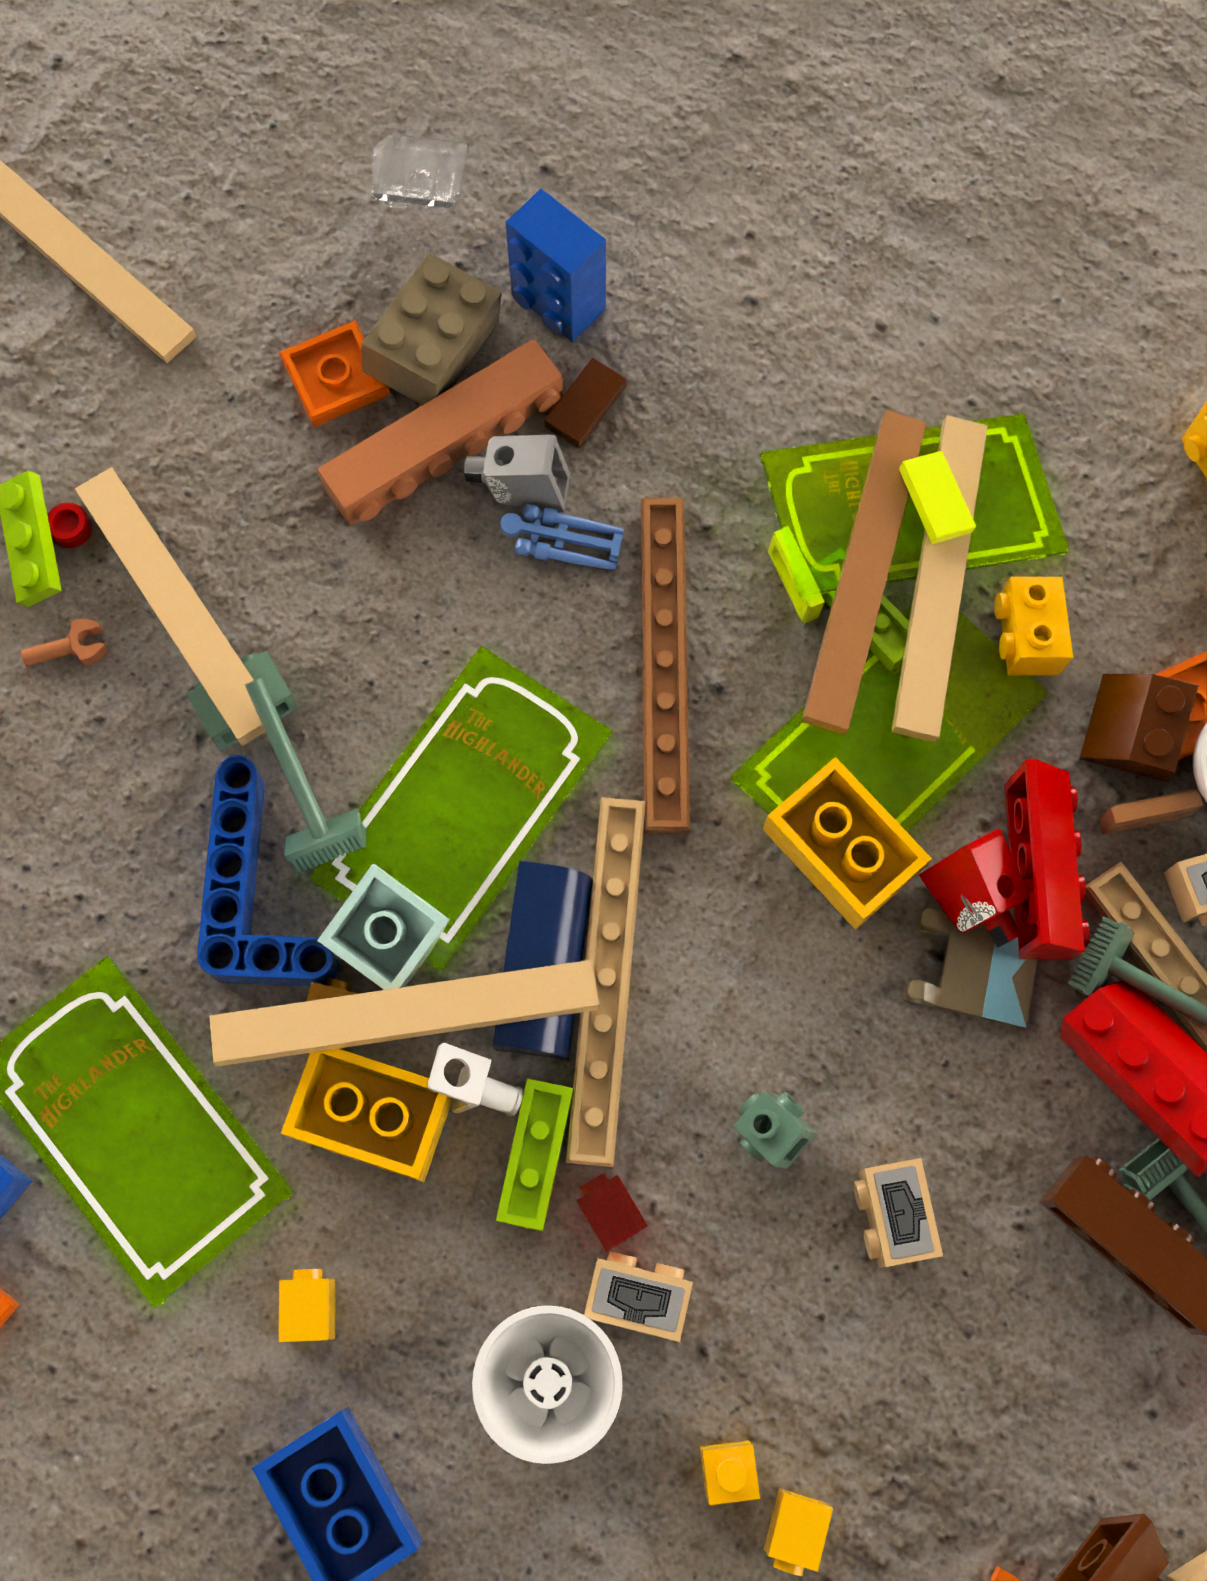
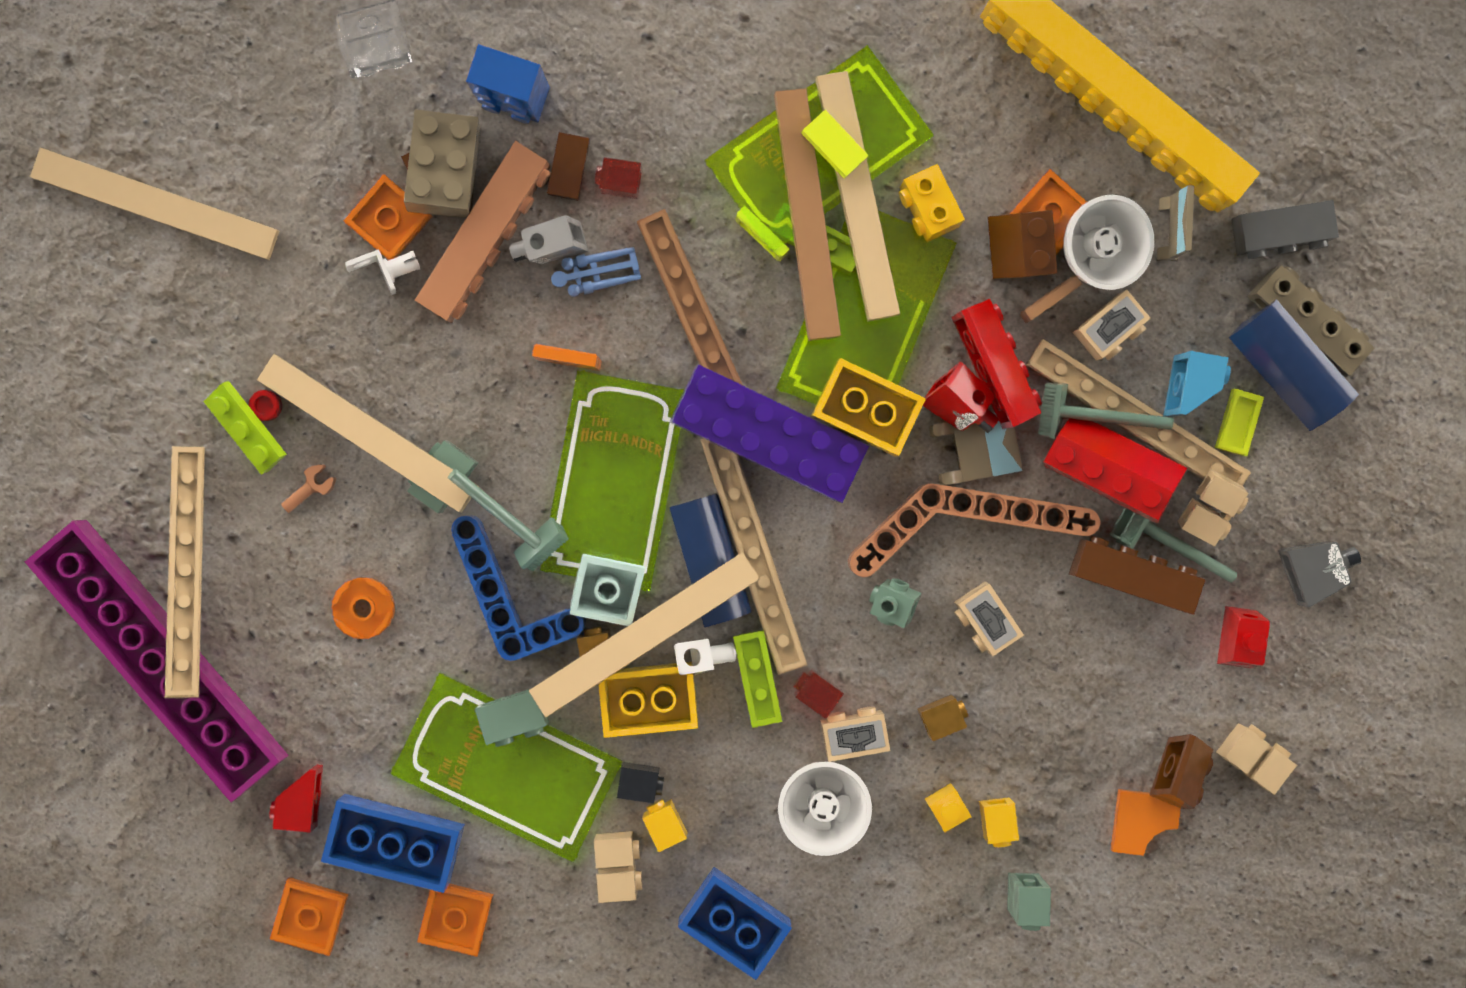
camera: 20 degrees left, 15 degrees up
(71, 844) = (381, 608): none -> orange tile
(167, 1052) = (510, 717): none -> sand green brick
(200, 1364) = (616, 866): none -> tan piece
(301, 1230) = (639, 783): none -> black brick
(306, 427) = (390, 269): none -> white bracket
(474, 614) = (566, 357): none -> orange tile
(643, 437) = (619, 177): none -> clear red brick
(696, 822) = (769, 434): none -> dark purple brick
(778, 1330) = (943, 717): none -> pearl gold brick
(939, 1054) = (974, 510): none -> nougat beam

